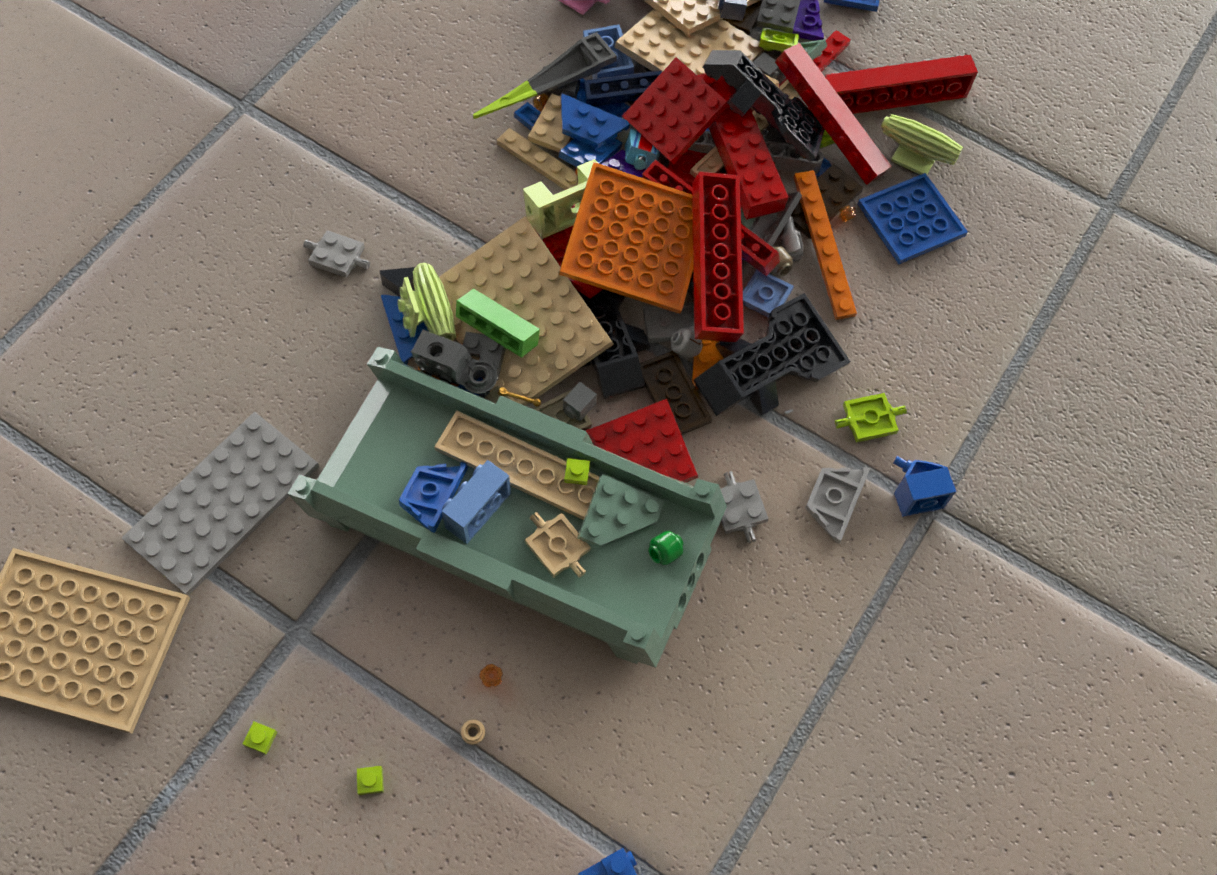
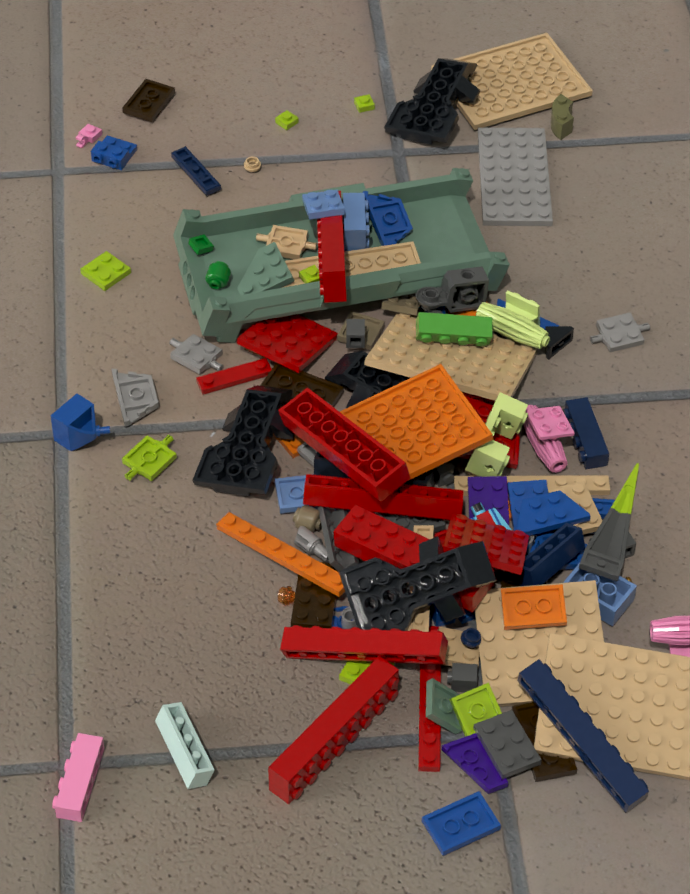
camera: 145 degrees right, 15 degrees down
(89, 536) = (562, 117): none -> olive brick
(165, 665) = (431, 111): none -> black piece
(474, 182) = (587, 434): none -> dark blue brick
(491, 669) = (268, 190): clear orange plate -> none
(502, 391) = (409, 304): pearl gold hinge -> none
(506, 513) = (323, 204): none -> medium blue plate
(509, 184) = (544, 429): none -> bright pink plate
(535, 470) = (331, 258): none -> red brick
(544, 771) = (196, 171): none -> dark blue plate
(649, 607) = (201, 244): none -> green plate
(675, 43) = (533, 607): none -> orange plate
(725, 456) = (233, 376): none -> red plate
(753, 690) = (105, 270): none -> lime plate
(912, 218) = (230, 628): blue plate -> none
(919, 144) = (271, 683): yellowish green plate -> none
(1016, 148) = (184, 745): none -> light aqua brick
(1109, 182) = (79, 777): none -> bright pink brick

